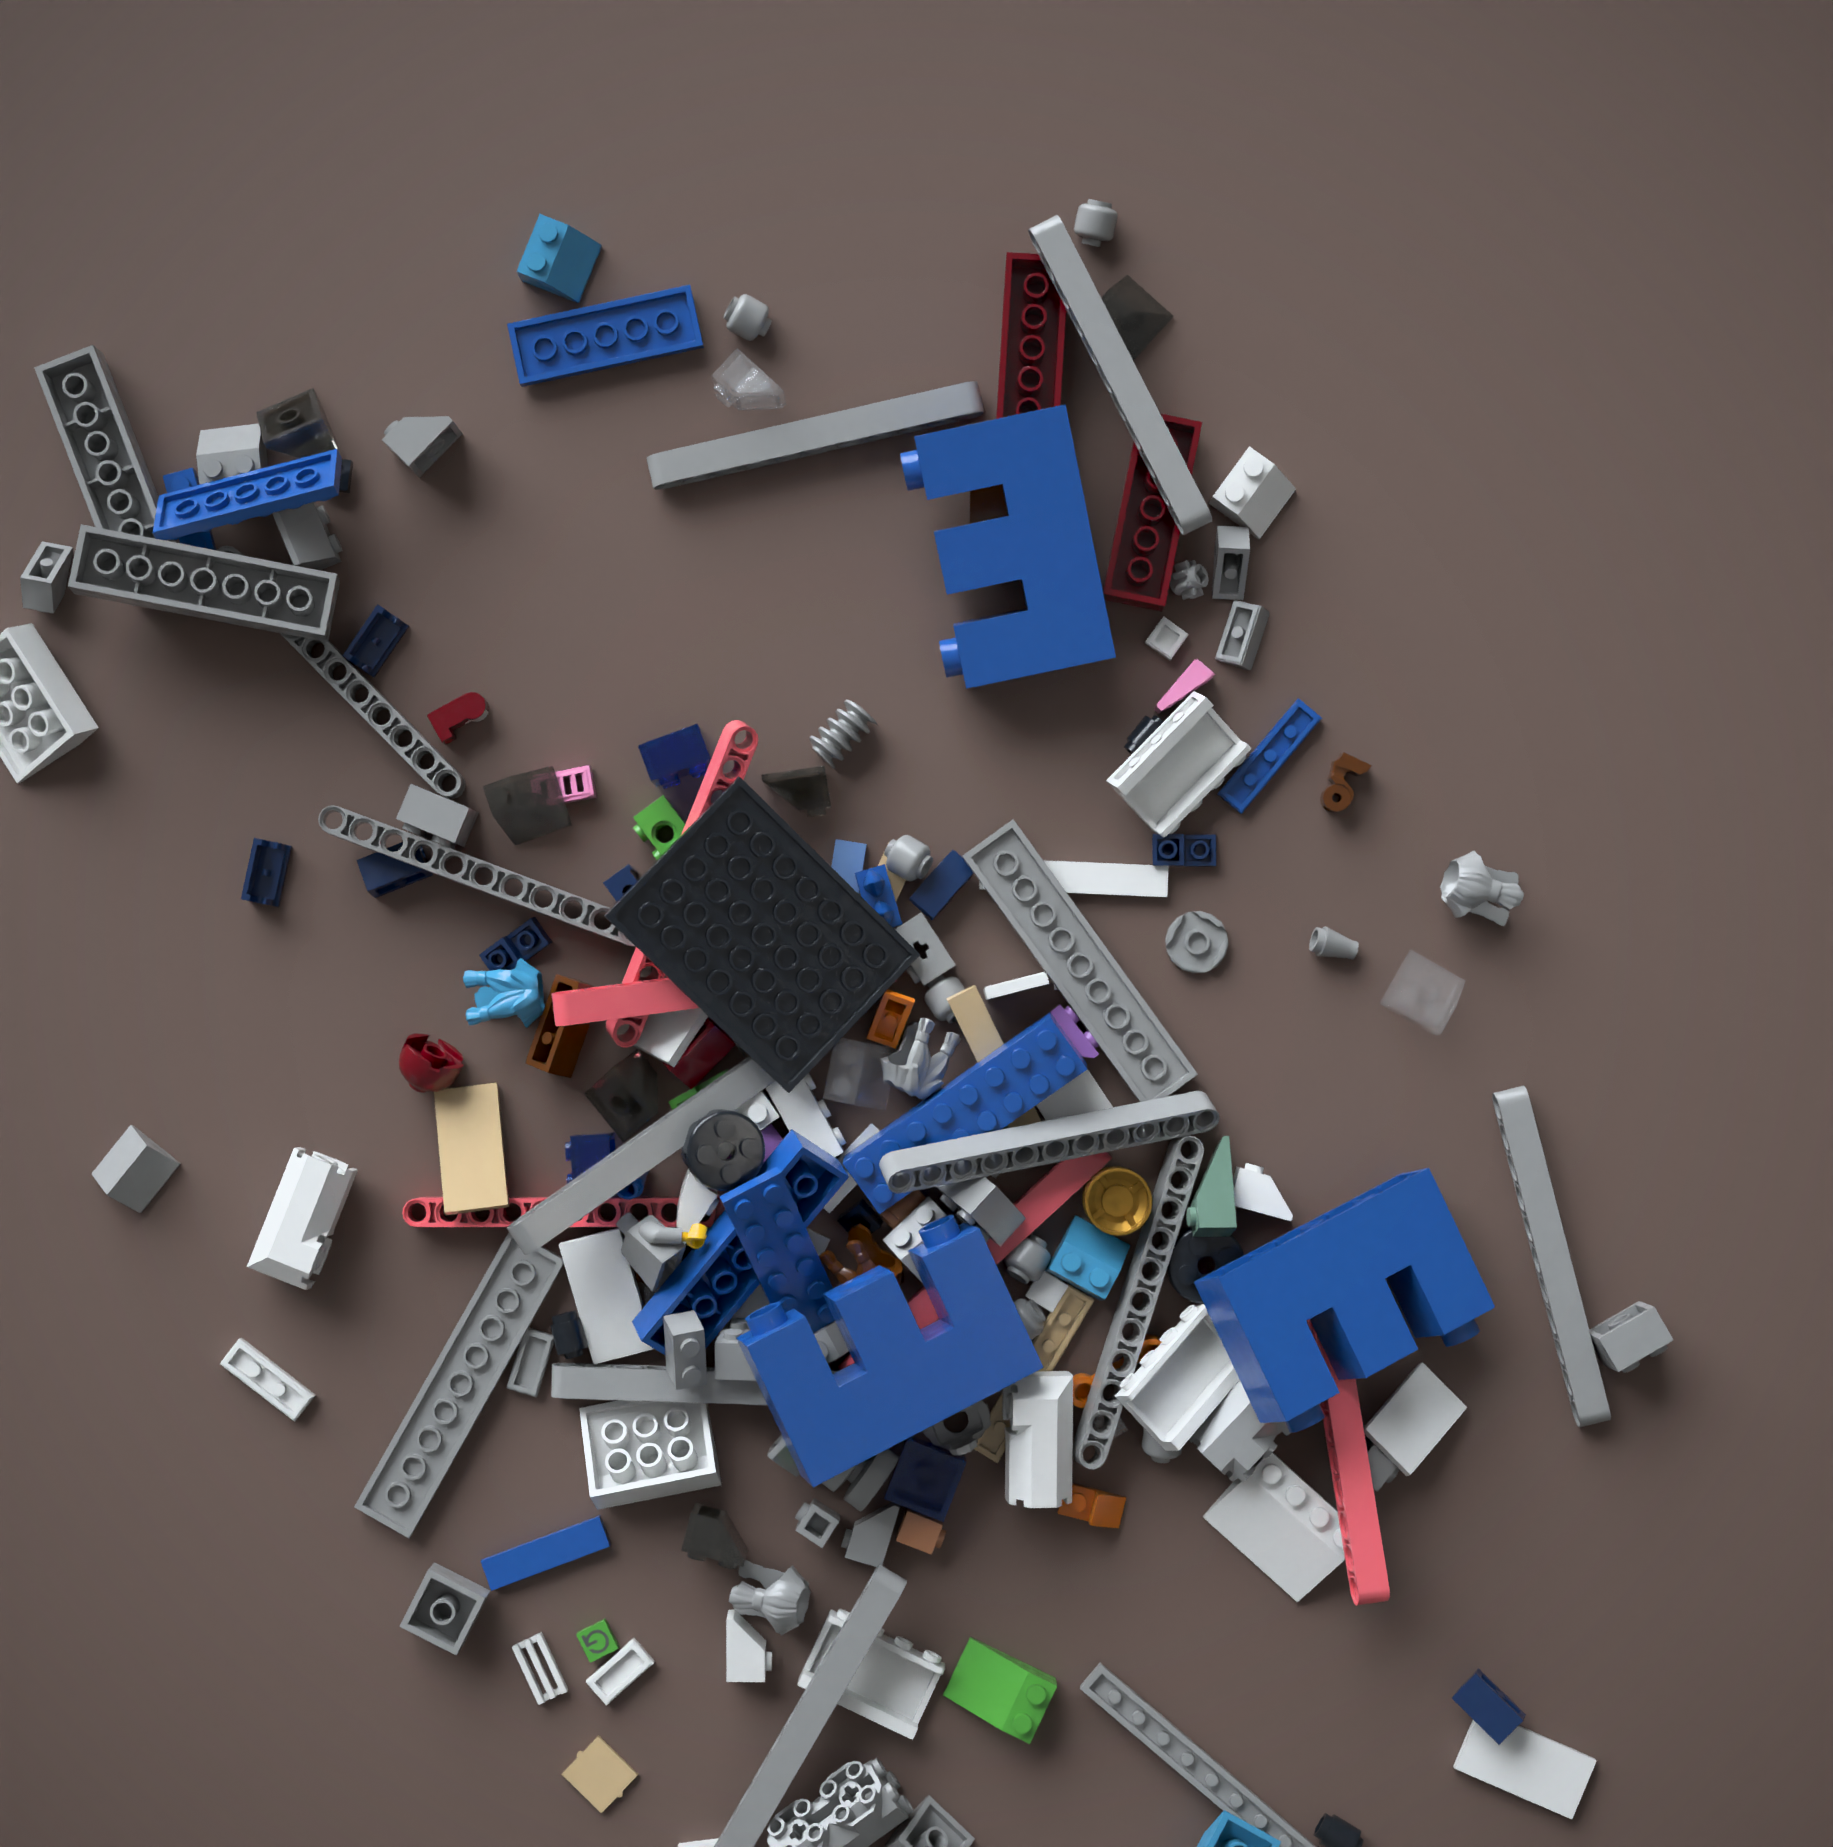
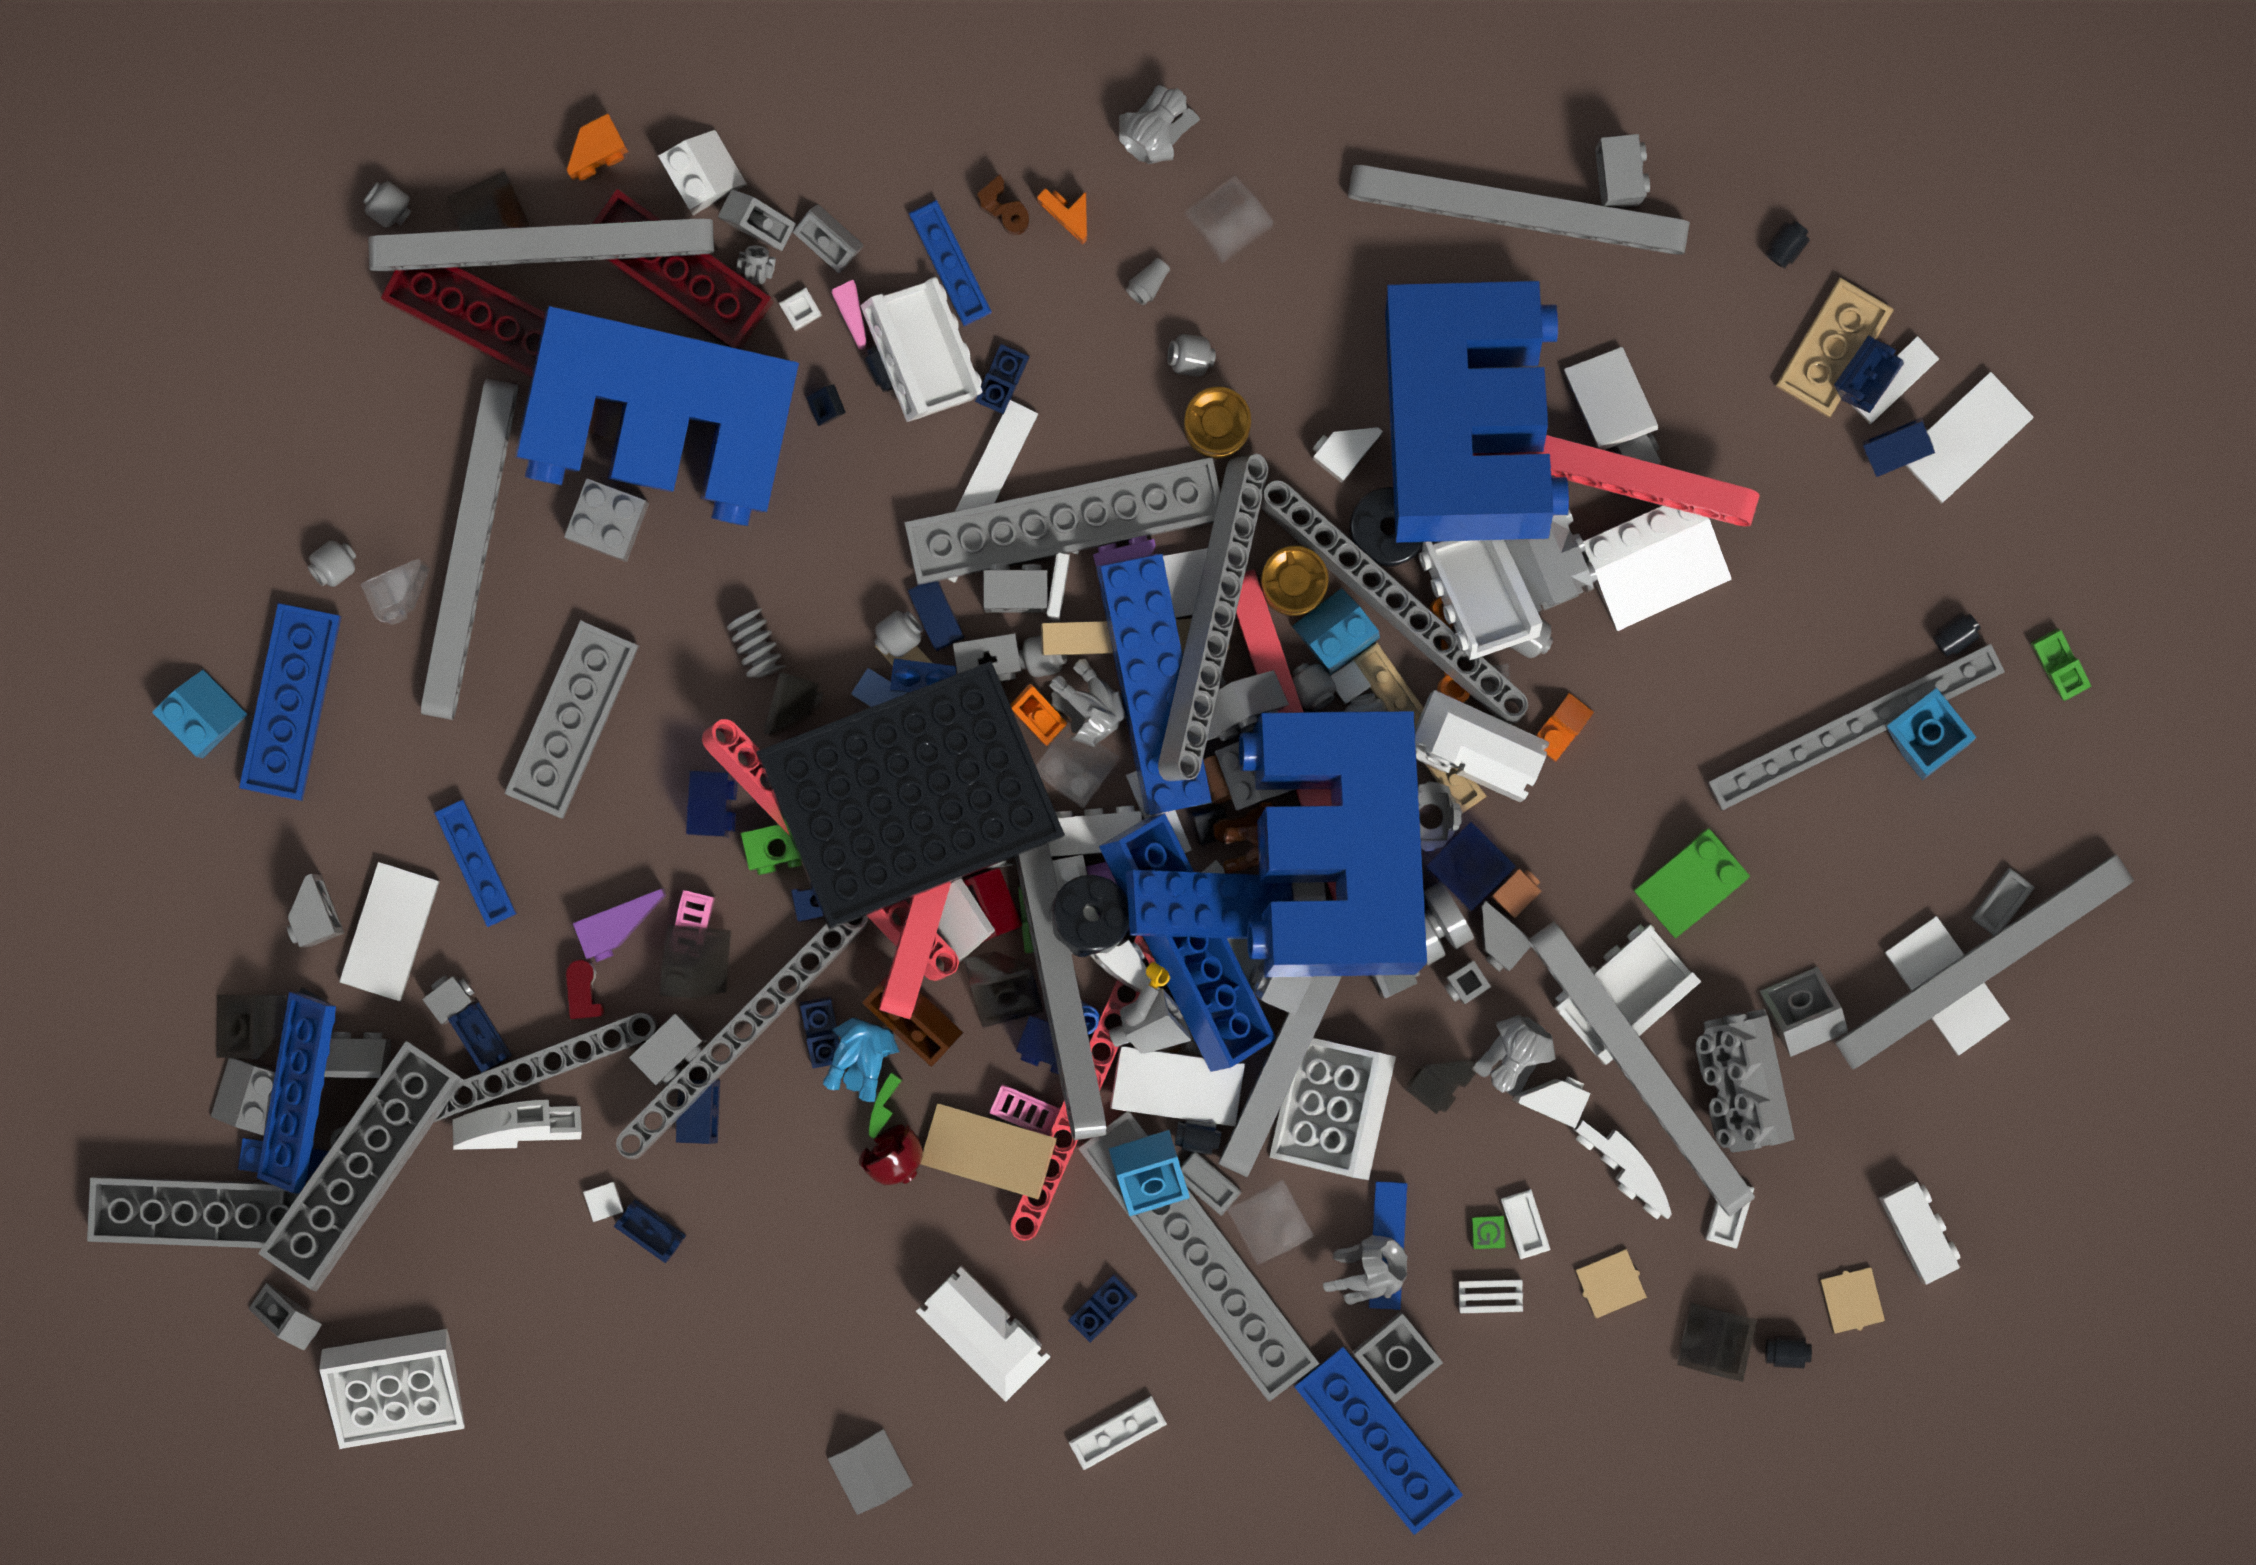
camera: 70 degrees left, 0 degrees up
(276, 818) = (603, 1201): none -> white tile
(311, 706) = (514, 1122): none -> white slope
(362, 1623) = (1378, 1440): none -> blue plate
(376, 1315) = (1103, 1307): none -> dark blue slope
(399, 597) = (449, 997): none -> light grey brick
(437, 517) = (389, 931): none -> white tile
(465, 1035) = (880, 1112): none -> bright green slope
(509, 1561) = (1377, 1278): none -> light grey piece
(512, 1153) = (1001, 1098): none -> bright pink slope
(514, 1305) = (1149, 1173): none -> dark azure slope
(519, 1436) = (1270, 1222): none -> clear slope
(524, 714) = (610, 928): none -> medium lavender slope
(532, 567) = (475, 863): none -> blue plate
(685, 1350) = (1256, 1030): light grey brick -> none
(700, 596) = (571, 719): none -> light grey plate
(710, 1753) = (1636, 1174): none -> white slope
(895, 547) = (606, 520): none -> light grey brick
(996, 948) = (1015, 589): none -> light grey brick
(1089, 700) = (826, 405): none -> black plate
(1196, 942) = (1091, 405): light grey tile -> none
(1213, 1205) = (1333, 492): sand green slope -> none
(1231, 386) = (596, 145): none -> orange slope
(1231, 1065) = (1217, 422): none -> pearl gold wheel
(1282, 1013) = (1190, 355): none -> light grey head
(1359, 850) = (1072, 219): none -> orange slope
(1543, 1649) = (1868, 374): none -> dark blue hinge
(1548, 1672) = (1917, 360): none -> white tile
(1554, 1604) = (1831, 344): none -> tan tile
(1630, 1519) = (1787, 244): none -> black brick

